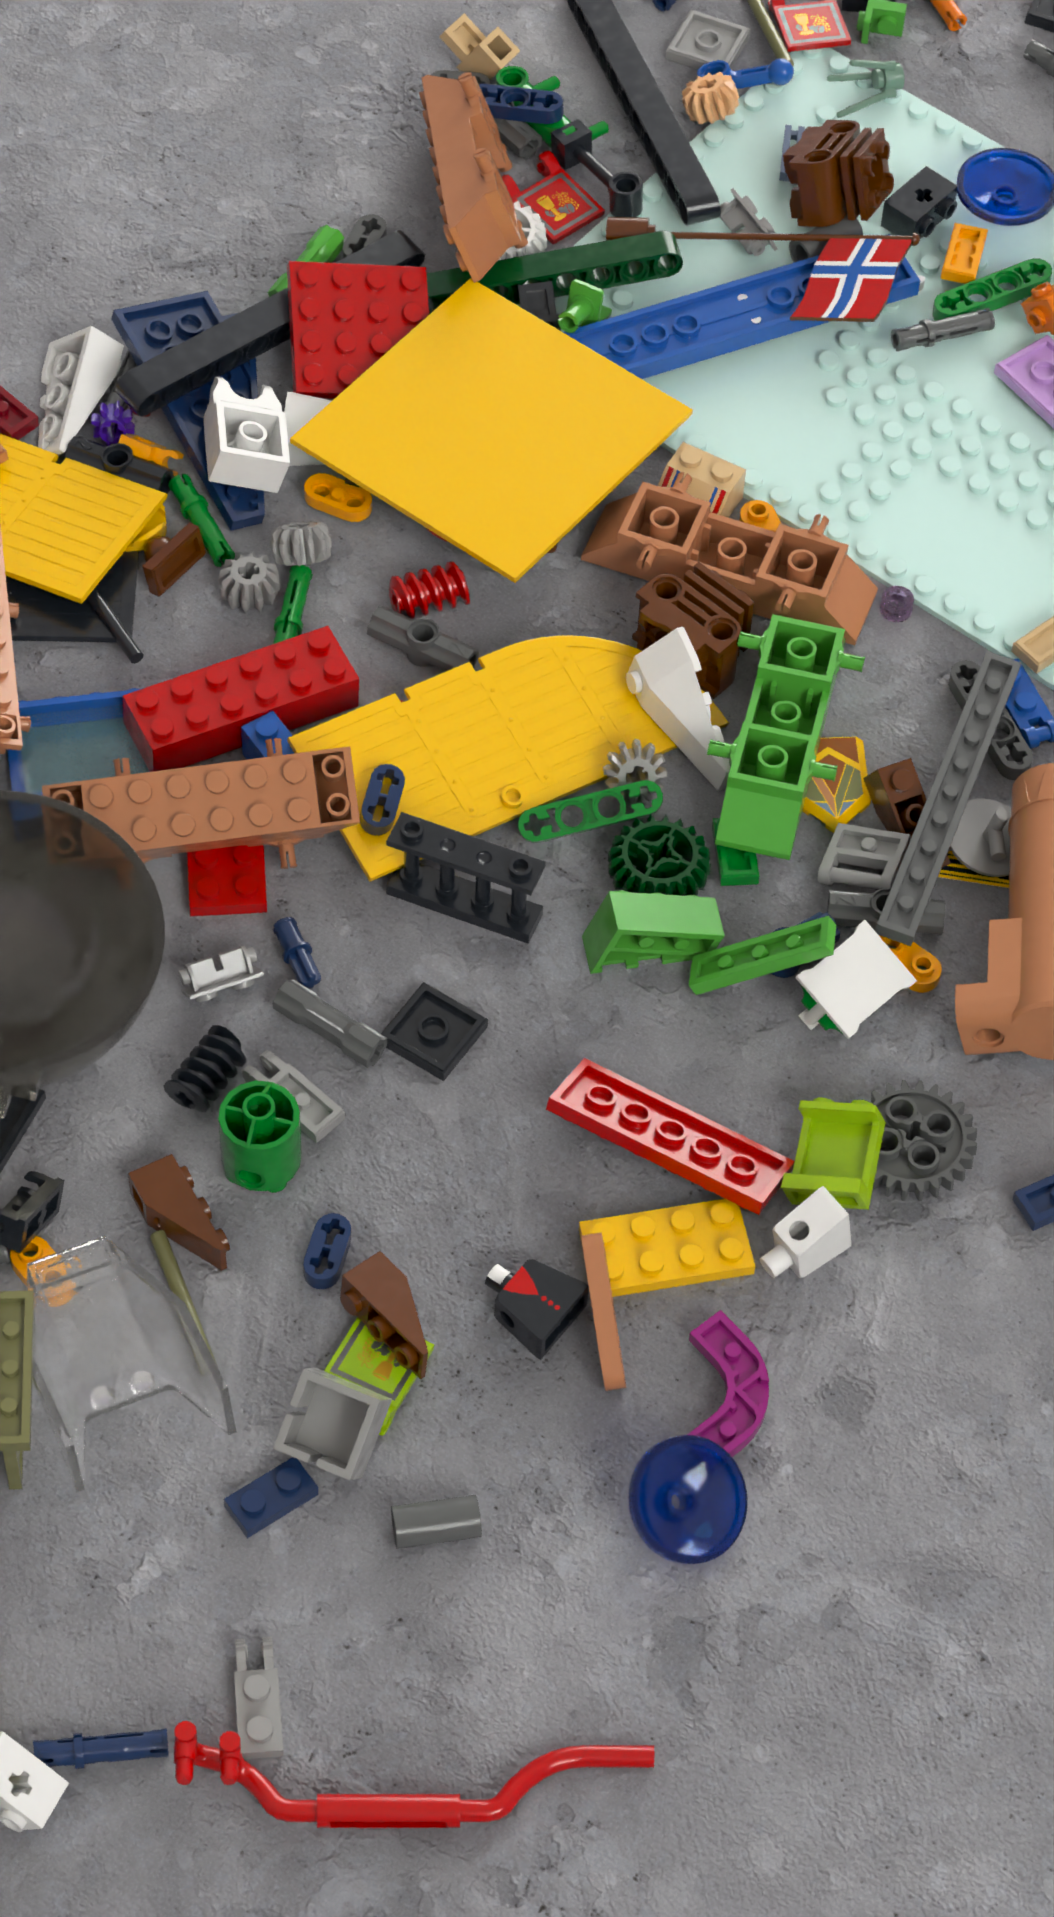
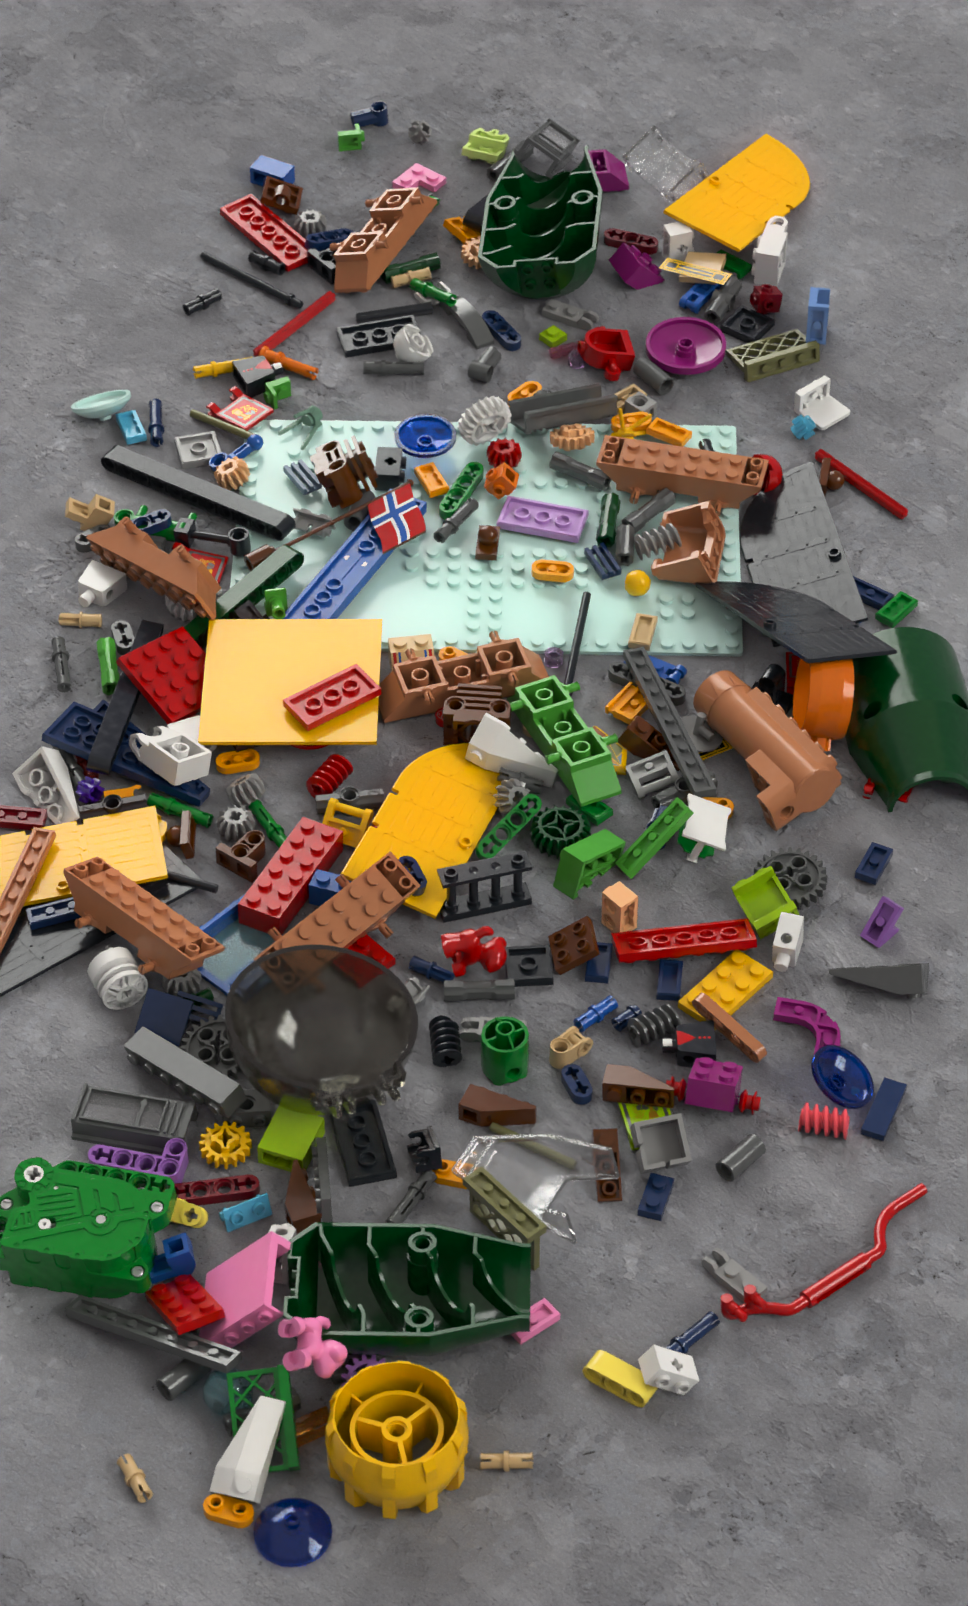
camera: 35 degrees left, 10 degrees down
(219, 630) = (243, 855): none -> reddish brown tile
(253, 1392) = (608, 1189): none -> reddish brown slope
(259, 223) = (59, 648): none -> dark grey pin
(335, 187) = (80, 620): none -> tan axle
(356, 948) = (470, 950): none -> red animal
(367, 1189) = (568, 1048): none -> tan piece
(375, 676) = (351, 832): none -> yellow plate
(398, 154) = (100, 584): none -> white torso
(452, 1163) = (595, 1013): none -> blue pin
(487, 1198) = (622, 1019): none -> dark blue pin
(496, 1389) = (715, 1087): none -> magenta brick
(505, 1234) = (651, 1024): none -> dark grey piece
(511, 479) = (332, 697): none -> plate
(512, 1042) = (573, 945): none -> reddish brown plate
(530, 1089) = (599, 966): none -> dark blue tile
(603, 1181) = (669, 980): none -> dark blue tile
(603, 1551) = (824, 1120): none -> coral piece
(618, 1029) = (619, 908): none -> light nougat brick
(674, 753) = (531, 783): none -> dark grey pin
(715, 1589) = (883, 1109): none -> dark blue tile
(920, 1403) = (899, 979): none -> dark grey wedge
(927, 733) = (627, 704): none -> light orange plate
(935, 607) = (577, 639): none -> black bar
(958, 385) = (487, 542): none -> reddish brown tile
(979, 1297) = (882, 921): none -> medium lavender slope
(1009, 478) = (552, 570): none -> light orange plate

